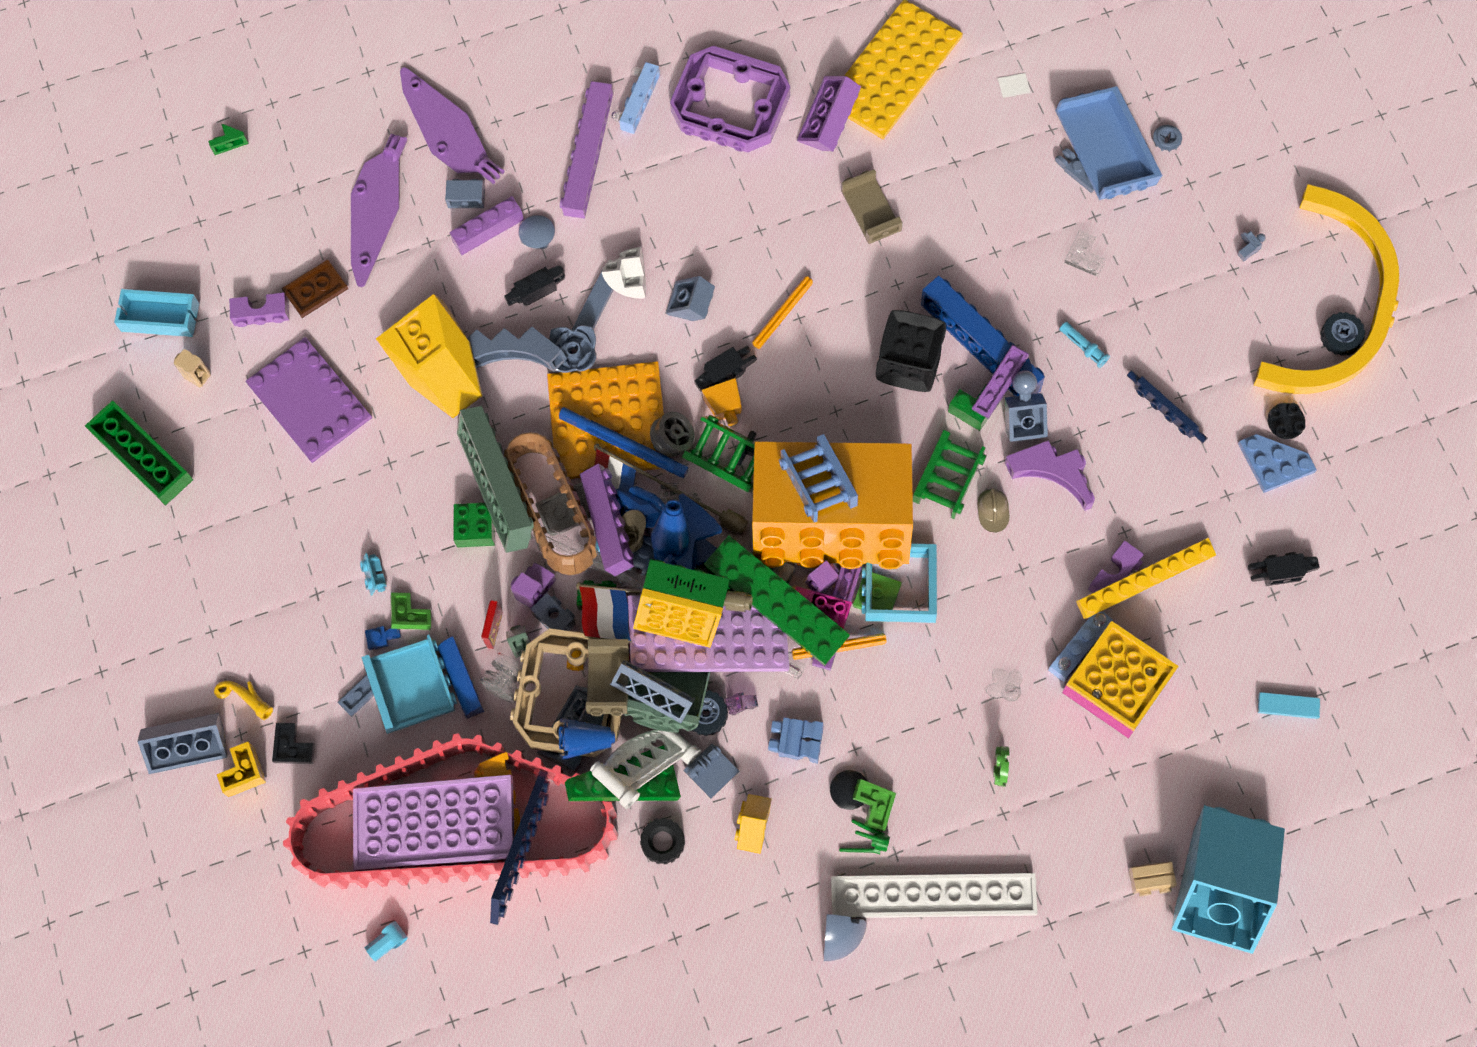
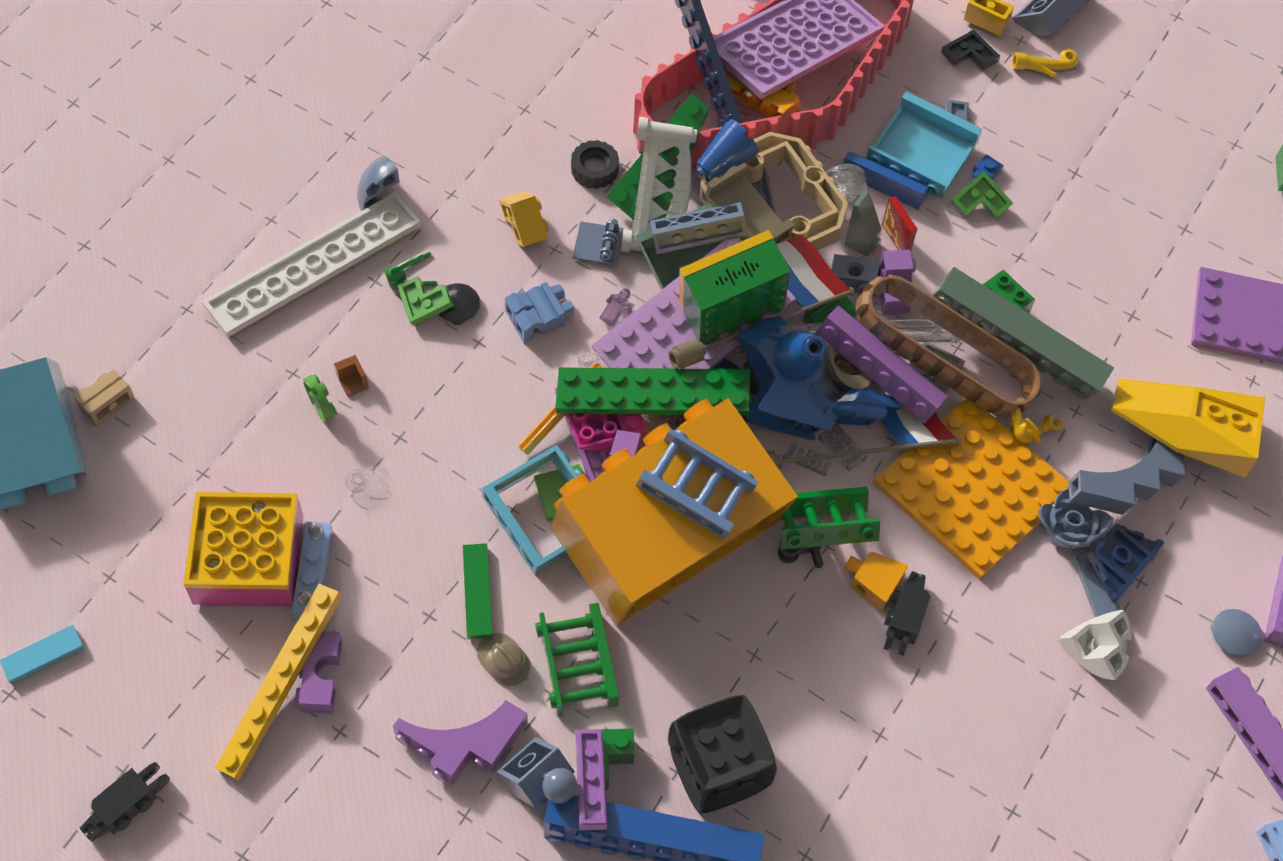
camera: 135 degrees right, 10 degrees down
(370, 567) = (1053, 214): medium azure hinge -> none
(535, 286) = (1176, 566): black hinge -> none
(546, 424) = (1027, 431): none -> yellow piece
(564, 311) = (1122, 558): none -> dark blue wing
(623, 442) = (935, 461): blue piece -> none
(672, 434) = (910, 500): flat silver wheel -> none
(690, 299) = (1009, 665): sand blue slope -> none
(718, 715) = (631, 277): black wheel -> none
(782, 312) = (902, 725): light orange axle -> none
(965, 777) = (351, 375): none -> dark orange panel
(980, 562) = (477, 591): none -> green tile

